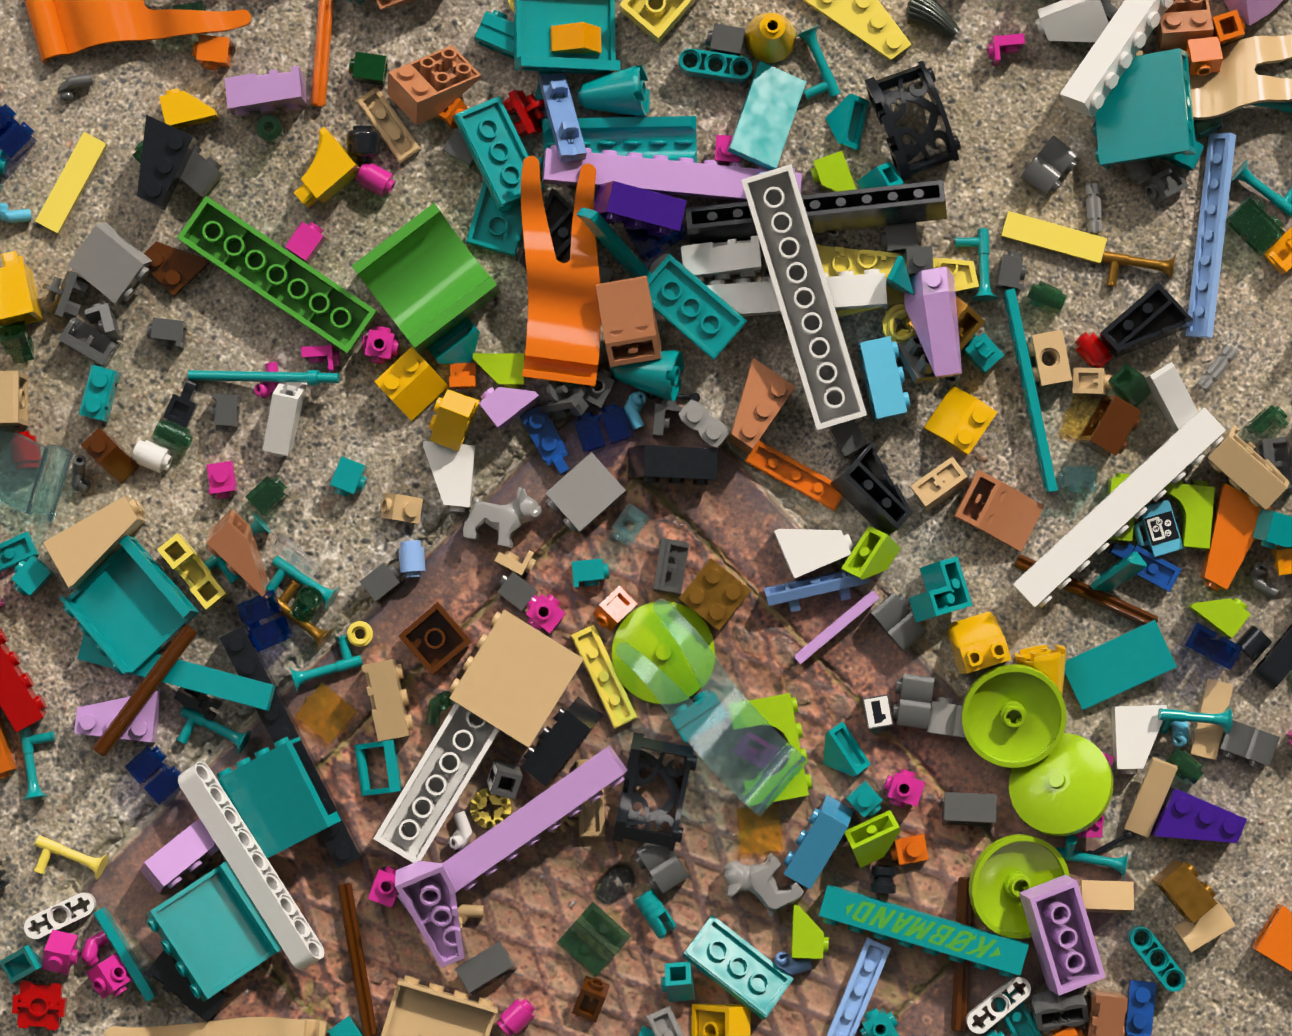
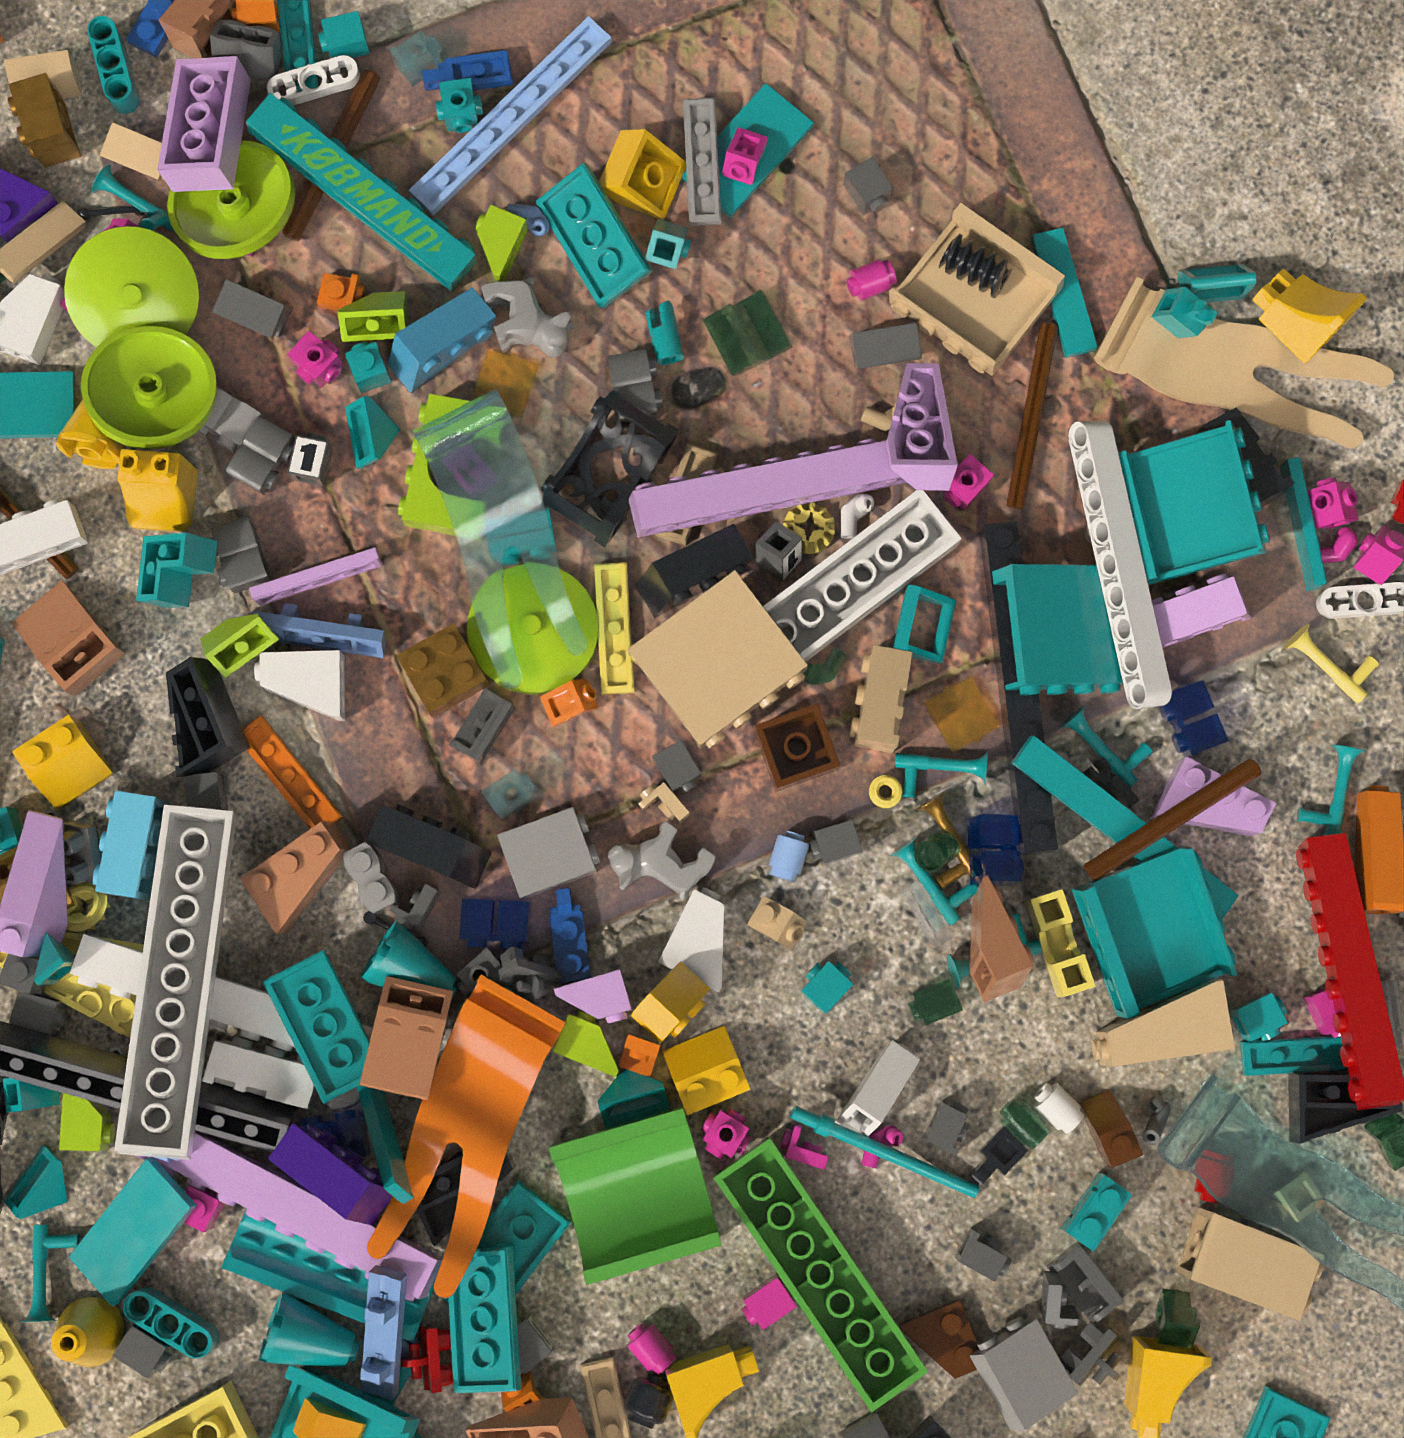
camera: 165 degrees left, 5 degrees down
(221, 479) = (983, 1044): dark pink bracket -> none
(552, 619) = (653, 715): dark pink brick -> none
(589, 572) = (581, 756): teal brick -> none
(591, 998) = (776, 267): reddish brown bracket -> none
(633, 407) = (449, 934): medium azure arm -> none
(883, 879) = (384, 269): black wheel -> none
(939, 484) = (121, 696): tan hinge -> none

